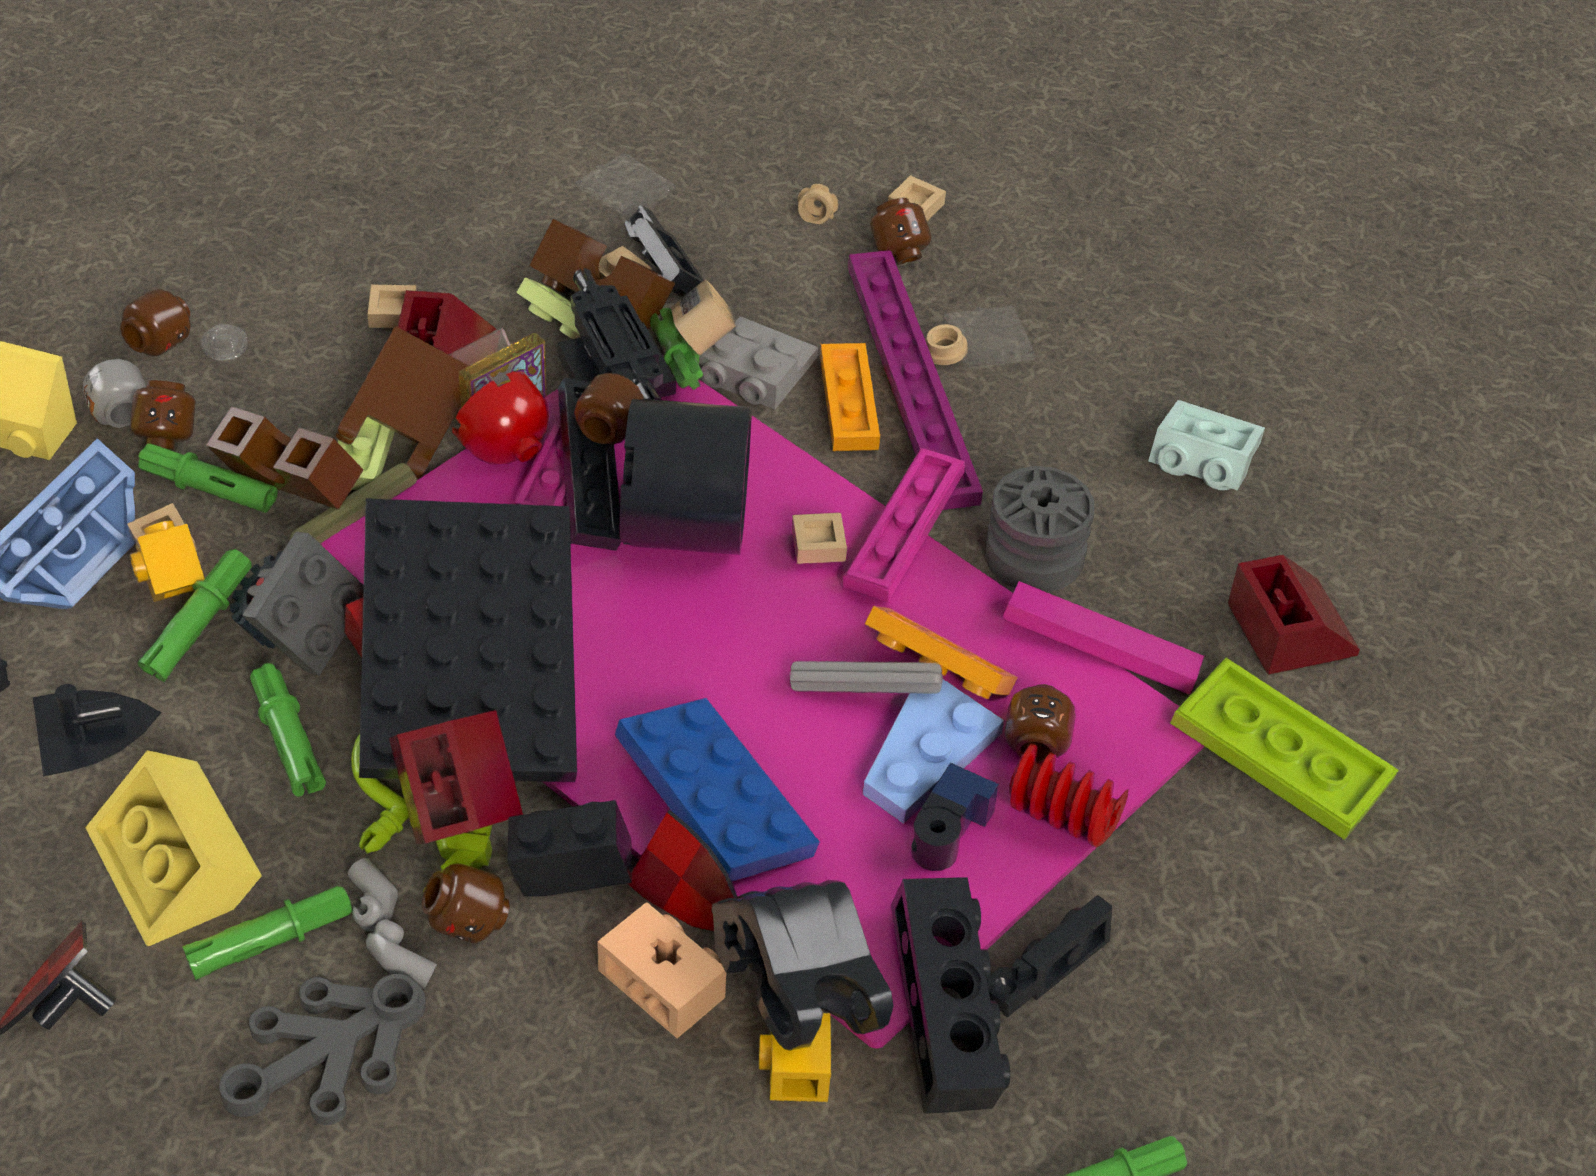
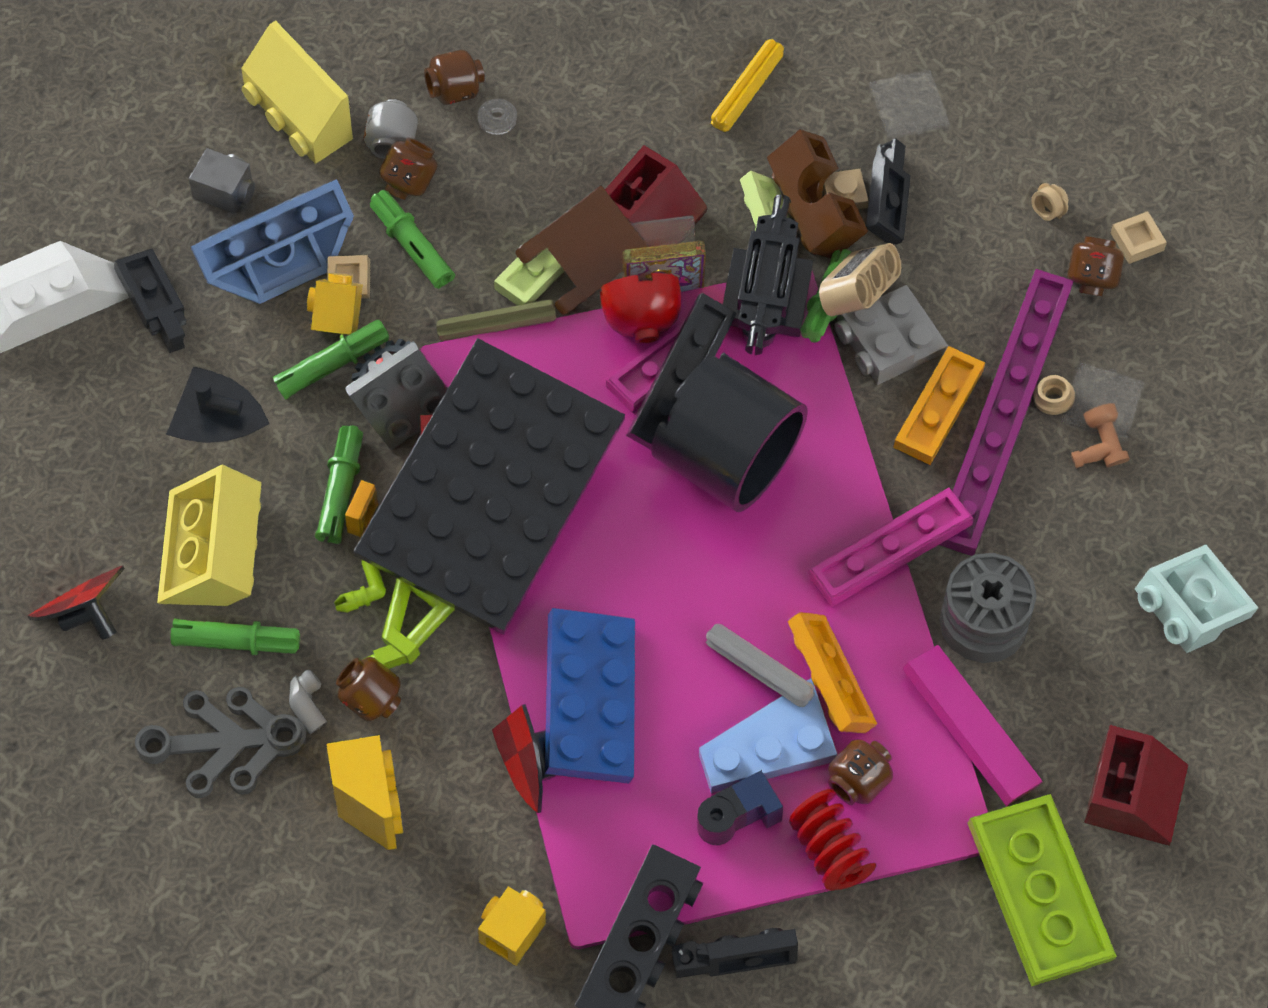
camera: 35 degrees right, 15 degrees up
(300, 465) = (466, 256): reddish brown arch -> none
(330, 737) = (361, 509): none -> light orange tile
(379, 894) = (323, 648): light grey arm -> none
(386, 305) = (639, 134): tan plate -> none
(455, 777) = (407, 596): dark red slope -> none
(461, 226) = (747, 85): none -> yellow axle
(541, 998) = (366, 788): none -> yellow slope
(569, 849) = (460, 687): black brick -> none
(605, 408) = (712, 335): reddish brown head -> none
(662, 969) = (464, 834): light nougat brick -> none
(806, 959) = (549, 859): black piece -> none
(819, 538) = (813, 526): tan plate -> none
(1029, 365) = (1110, 448): none -> nougat piece

